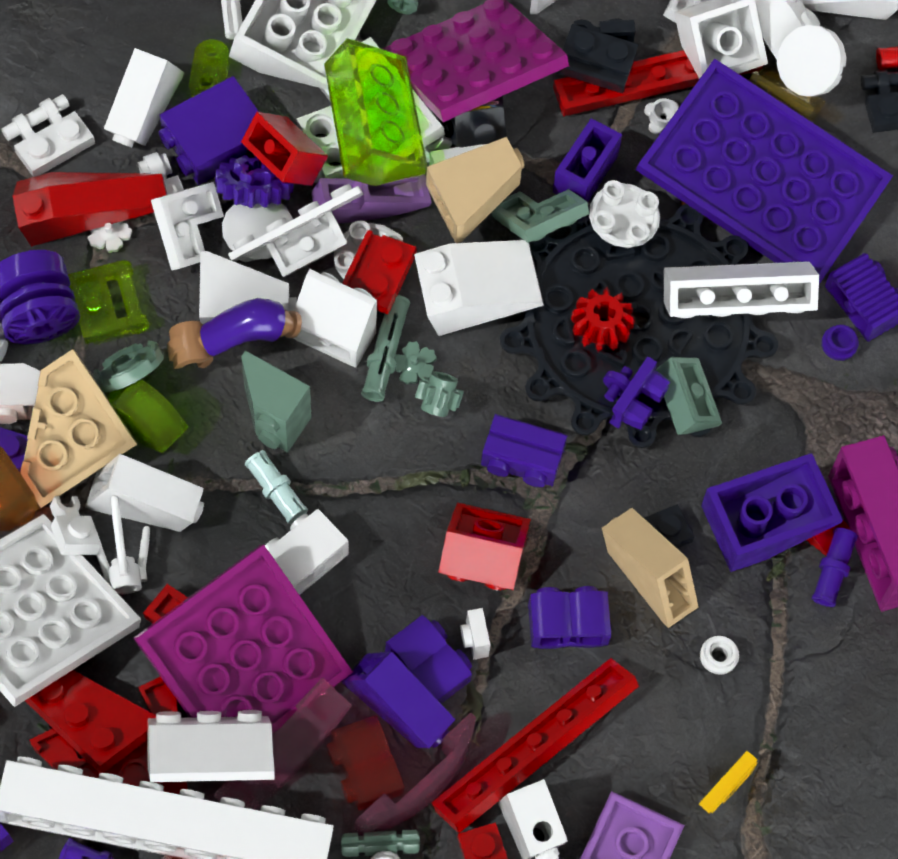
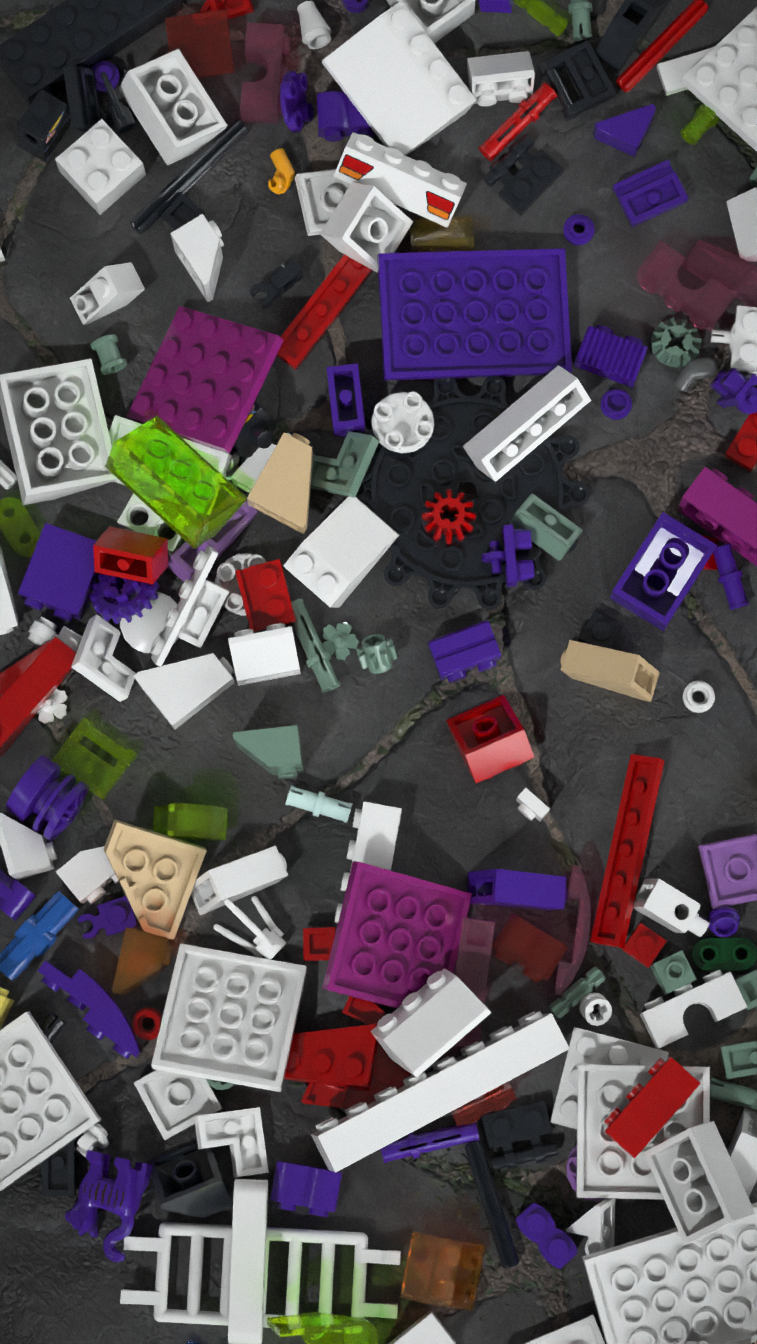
camera: 30 degrees left, 15 degrees up
(73, 532) = (210, 940): white plate -> none
(128, 366) = (152, 798): sand green tile -> none
(239, 324) = (209, 711): dark purple piece -> none
(430, 658) = (515, 848): dark purple brick -> none
(569, 618) = (584, 747): dark purple brick -> none
(598, 58) = (291, 309): black plate -> none
(659, 108) = (365, 308): white plate -> none
(811, 60) = (447, 203): white tile -> none

